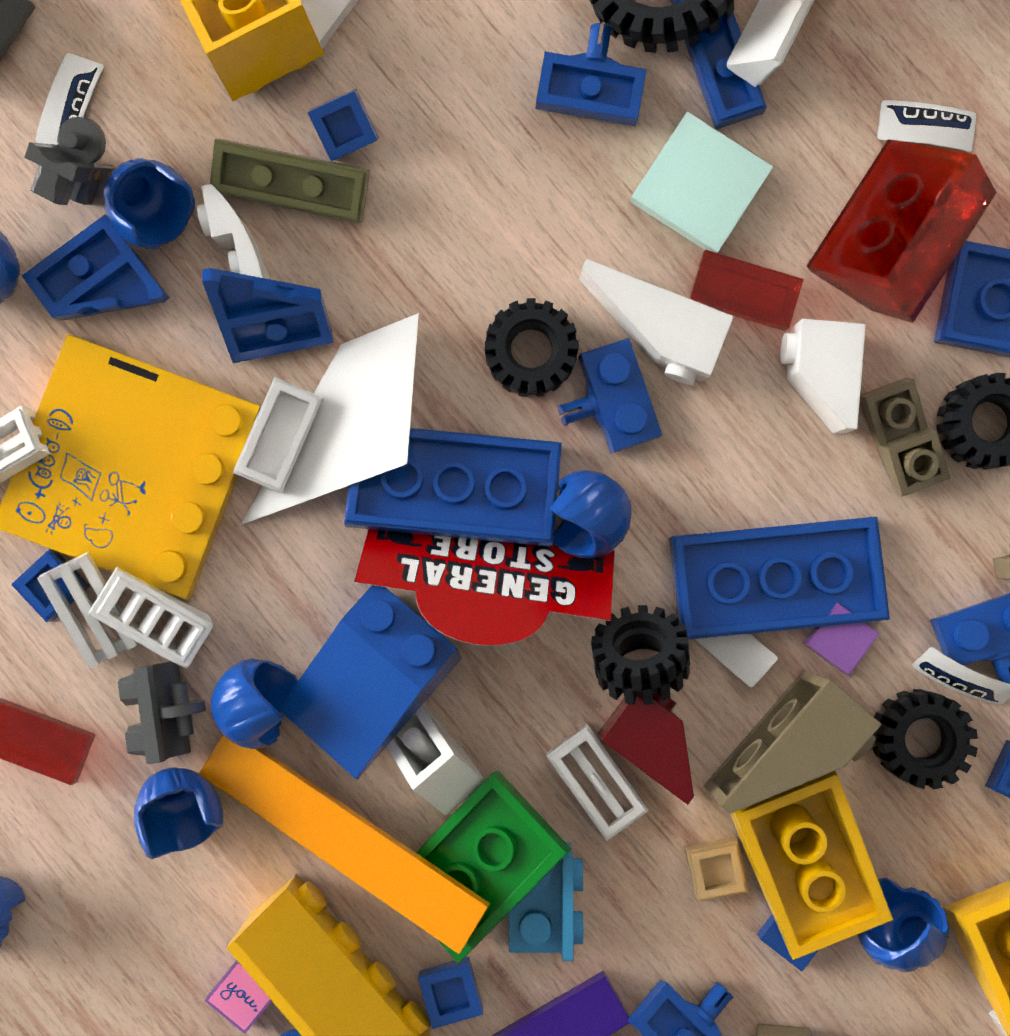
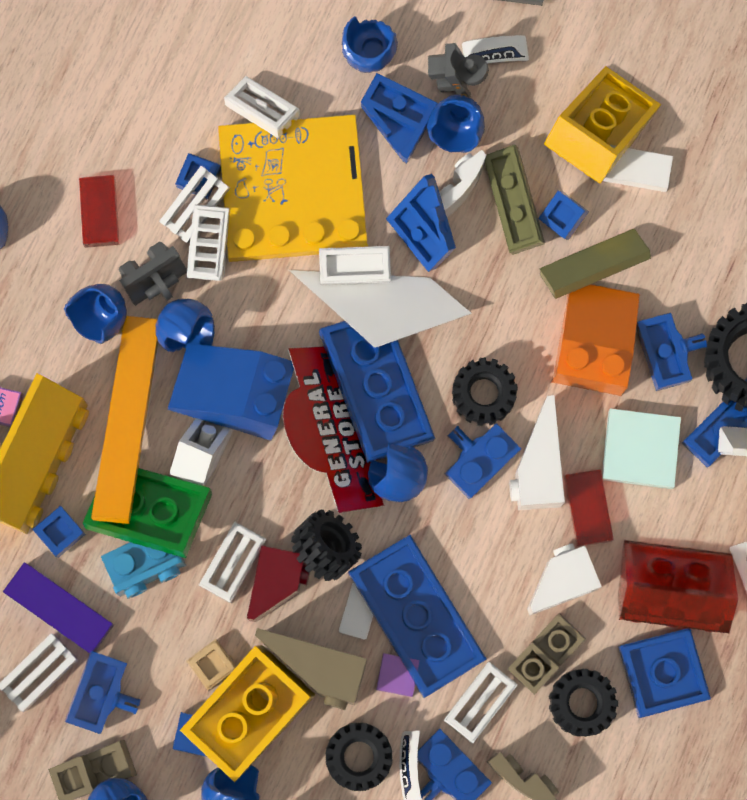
camera: 65 degrees right, 10 degrees down
(429, 117) = (595, 263): none -> olive tile
(531, 165) = (597, 339): none -> orange slope
(906, 559) = (461, 727): none -> white tile

